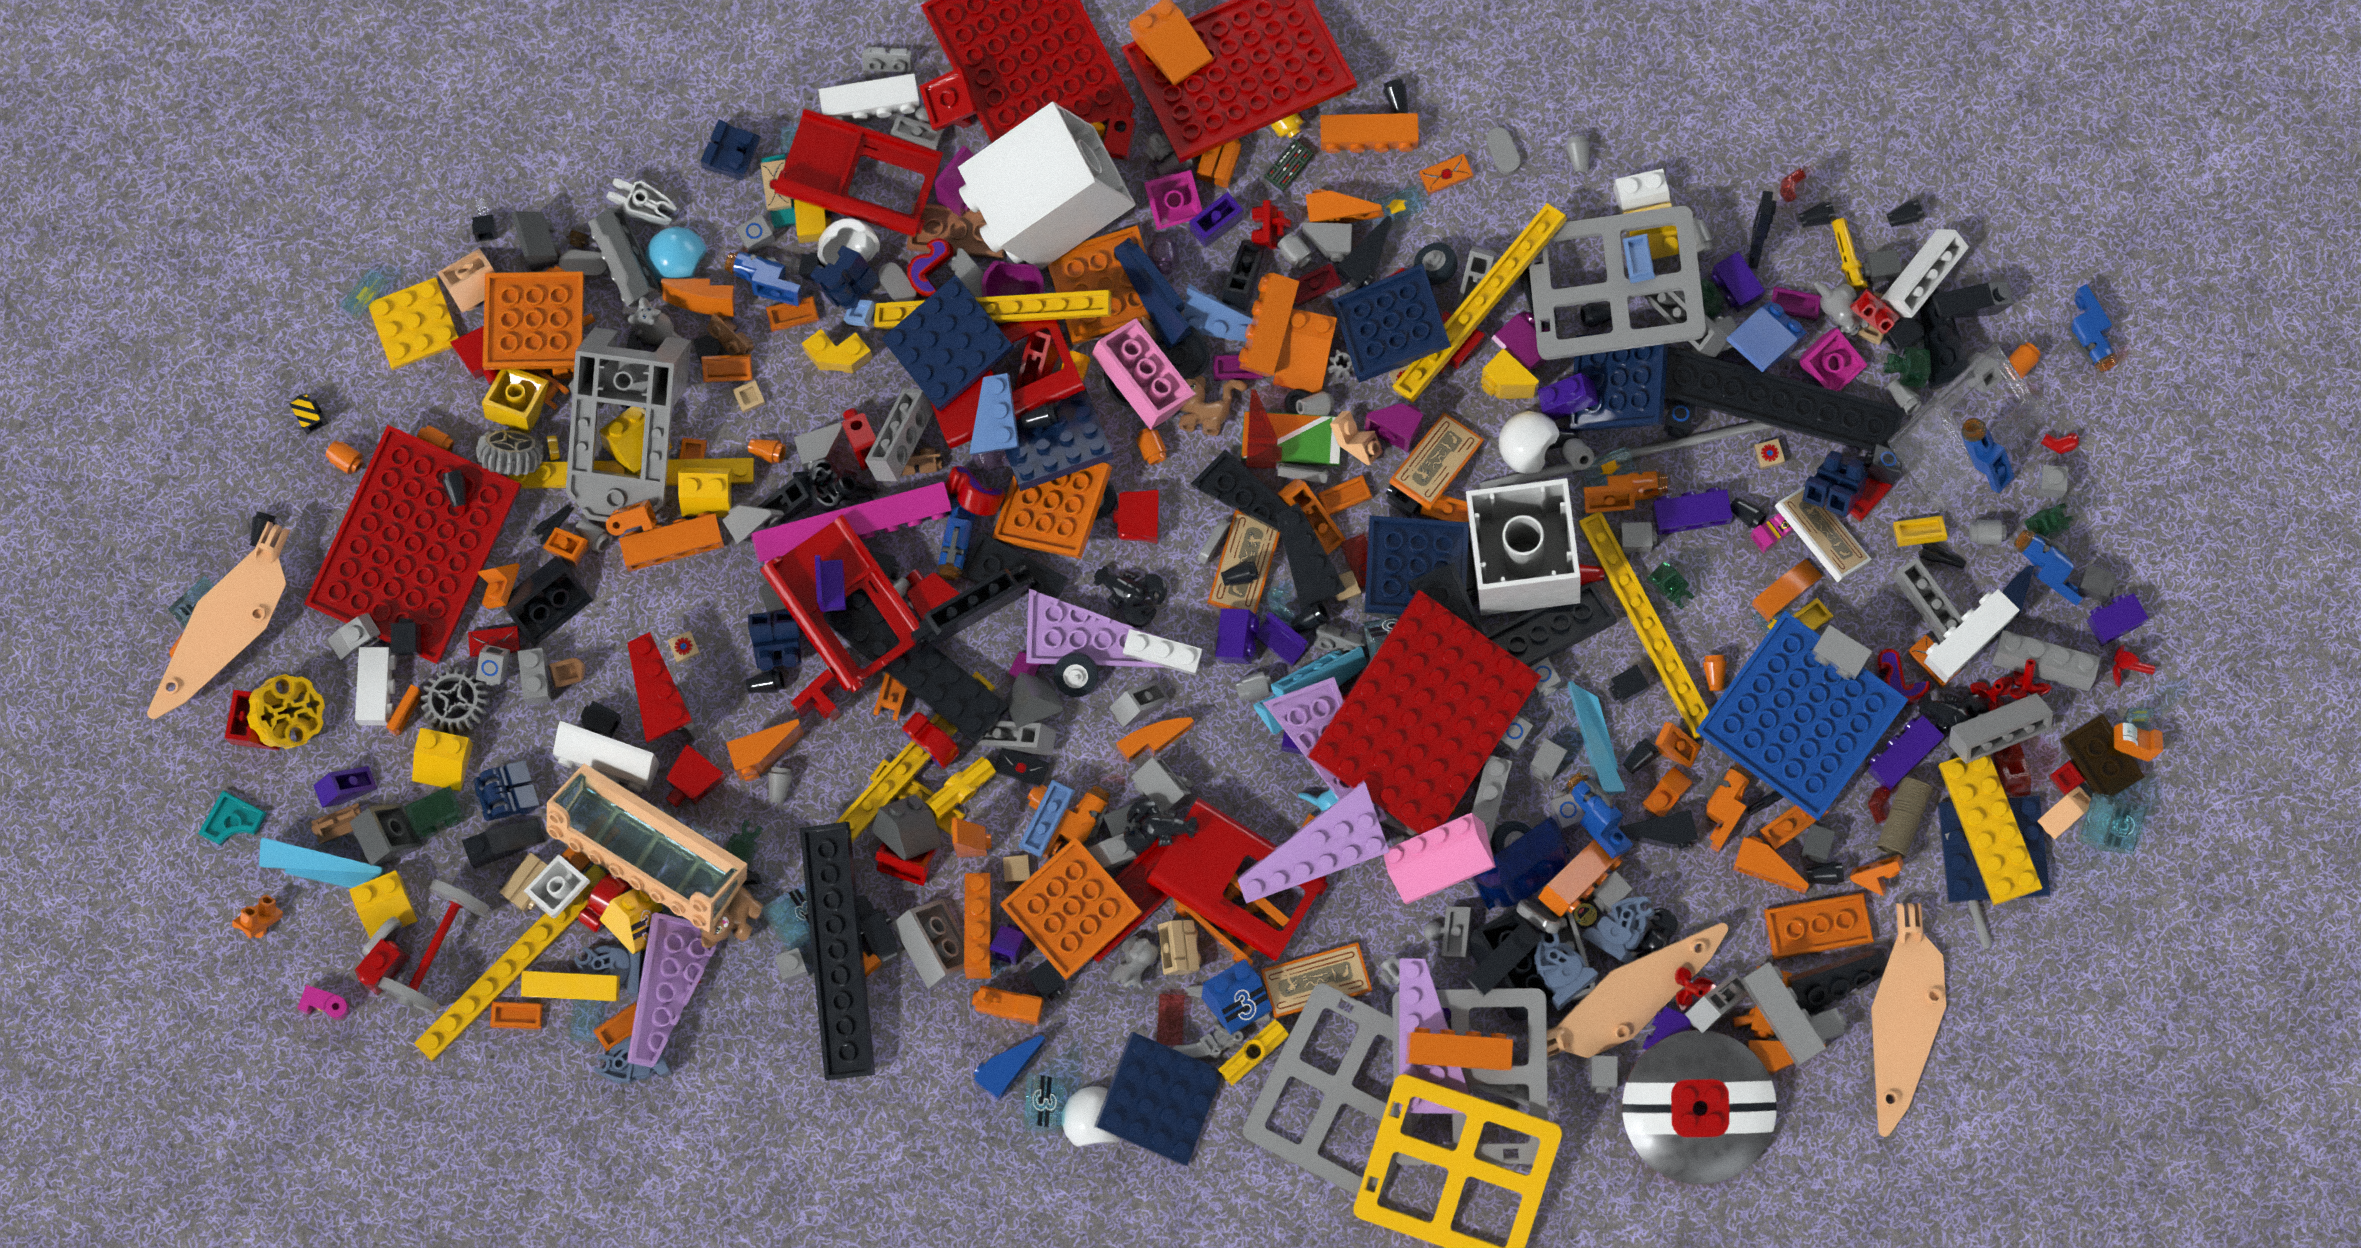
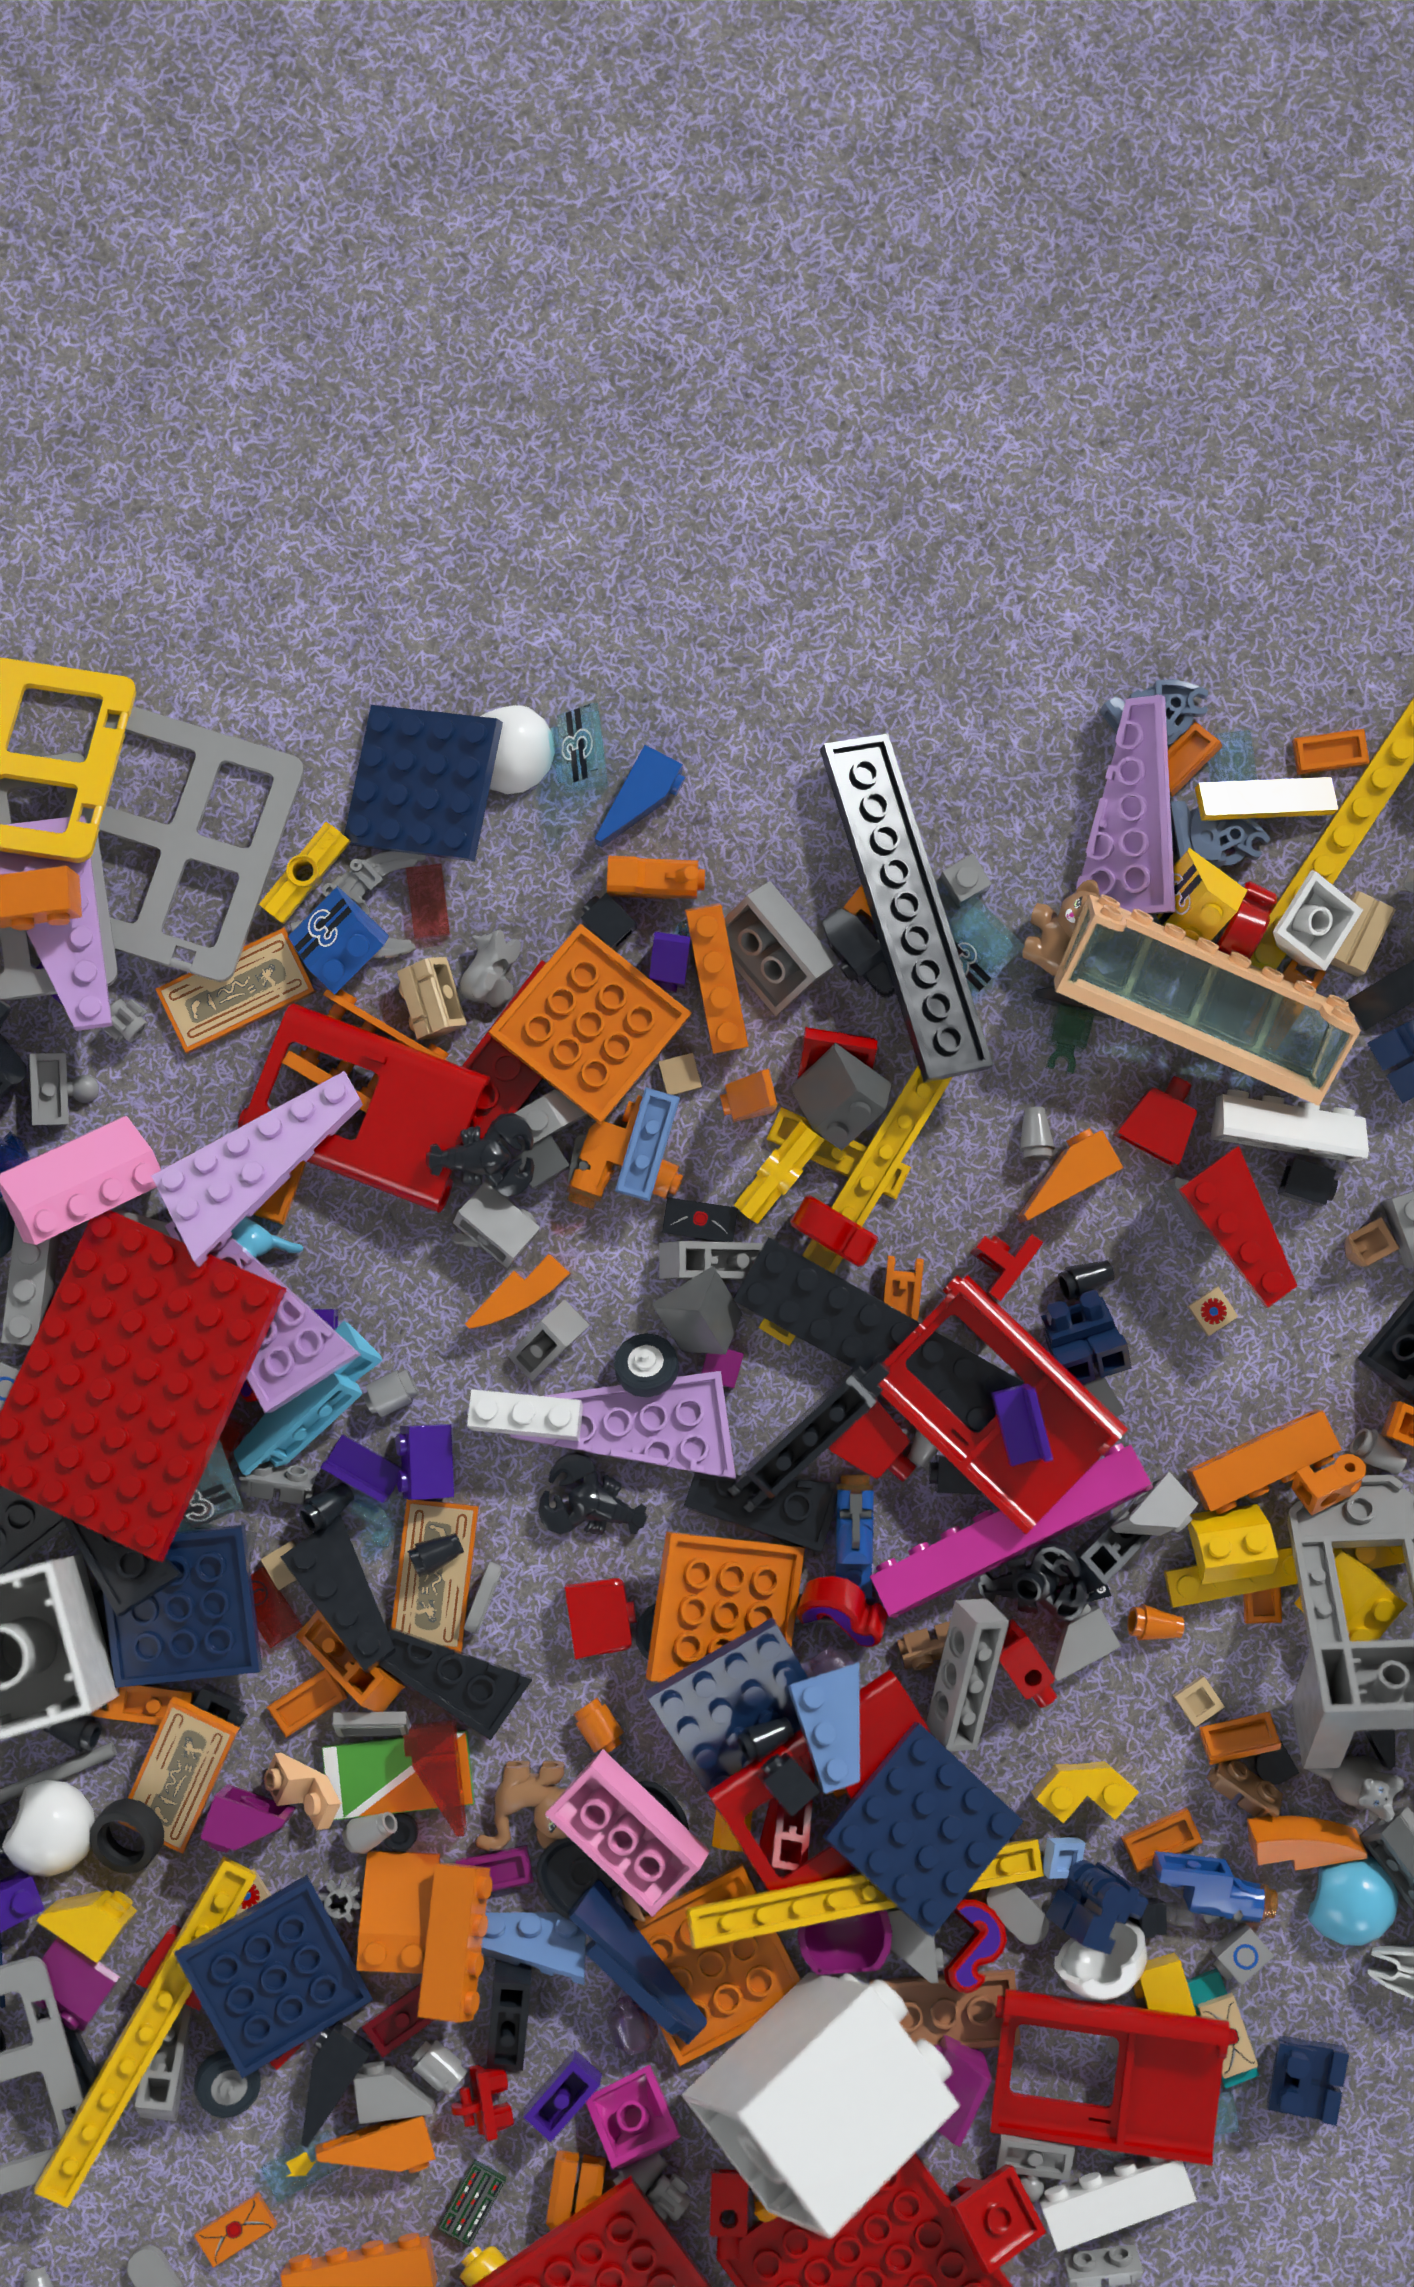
camera: 165 degrees right, 10 degrees up
(1030, 383) = (787, 1782): none -> black brick
(1487, 417) = (113, 1854): none -> black tyre

